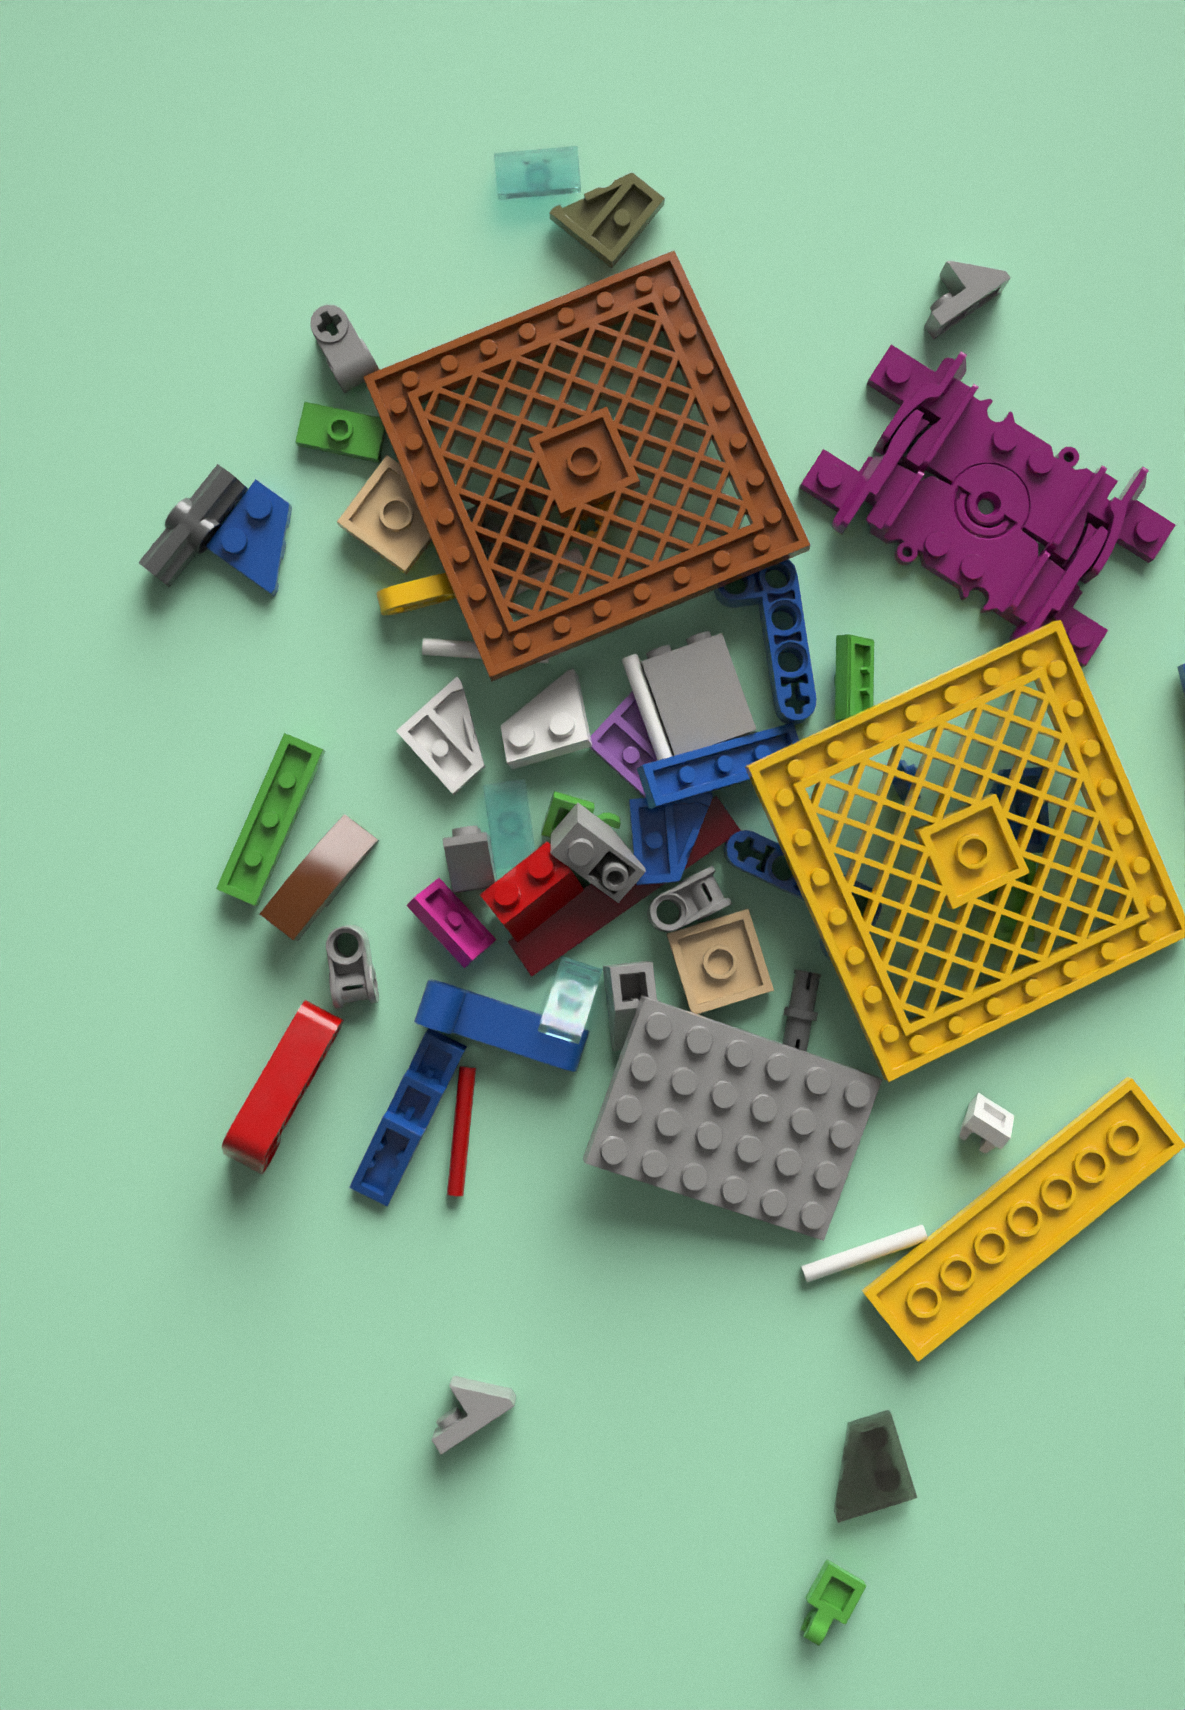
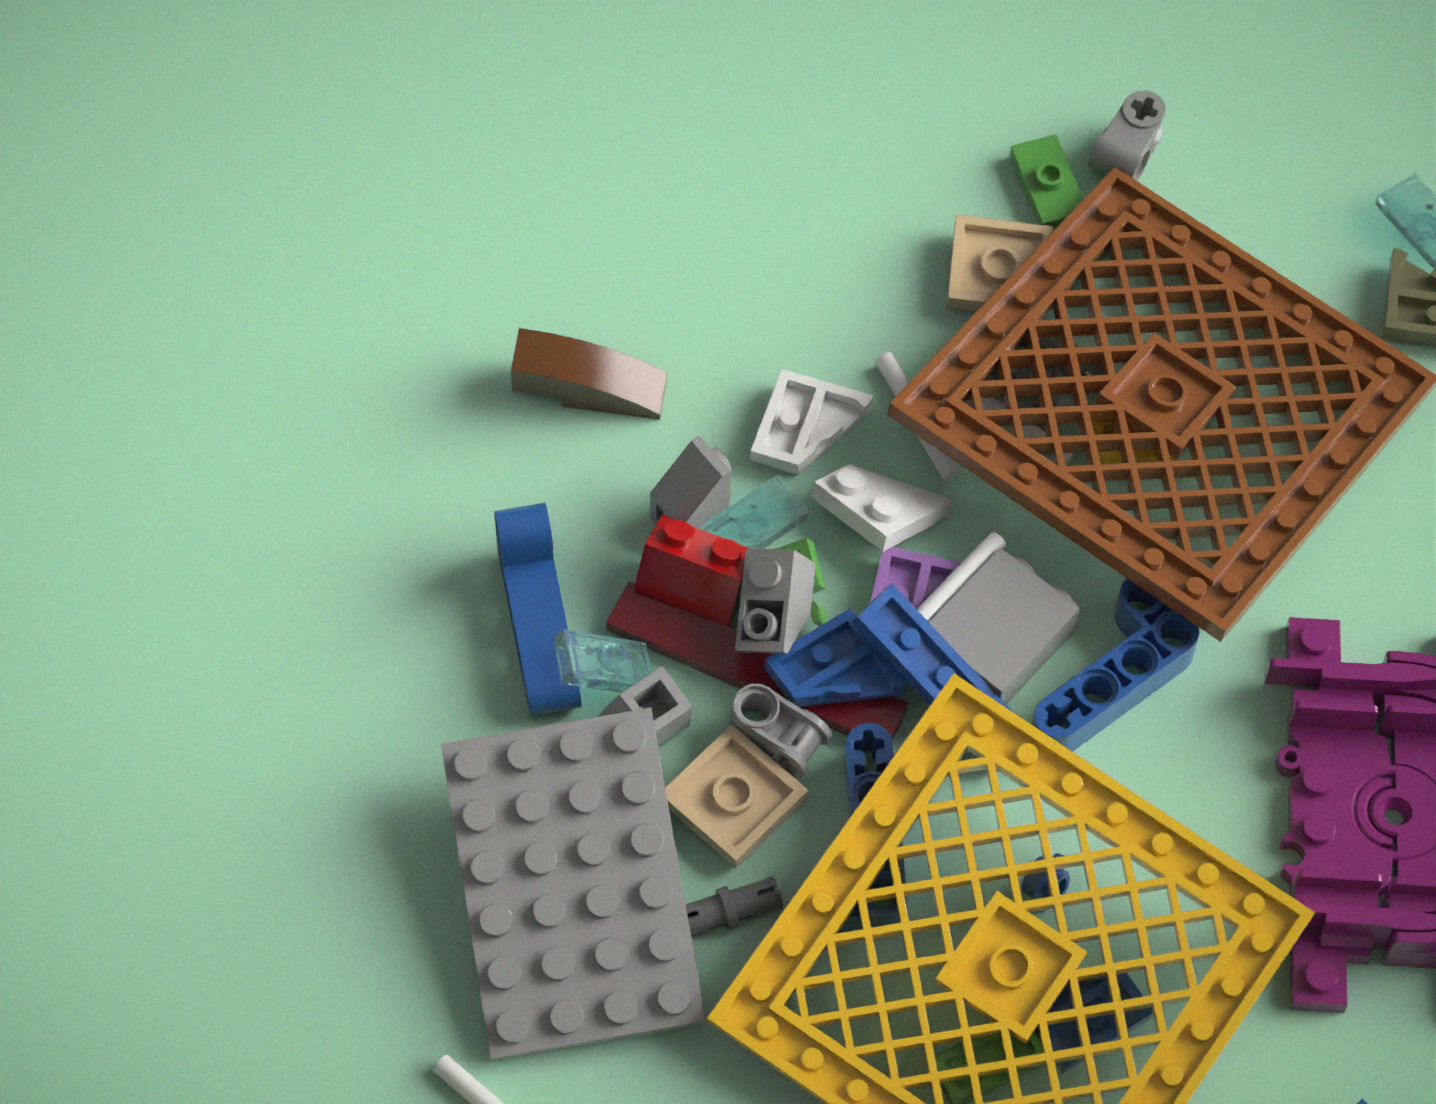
camera: 55 degrees right, 25 degrees down
(193, 525) = (868, 100): dark grey piece -> none
(255, 536) = (895, 159): blue wing -> none
(270, 819) = (622, 305): bright green plate -> none
(280, 1087) = (350, 438): red beam -> none
(351, 969) = (506, 453): light grey piece -> none
(407, 1117) = (388, 582): blue slope -> none
(415, 594) = (925, 316): yellow beam -> none
(451, 922) = (616, 518): dark pink plate -> none
(461, 1131) = (401, 641): red bar -> none
(481, 1405) = (108, 800): light grey slope -> none
(853, 675) = (1137, 761): bright green plate -> none

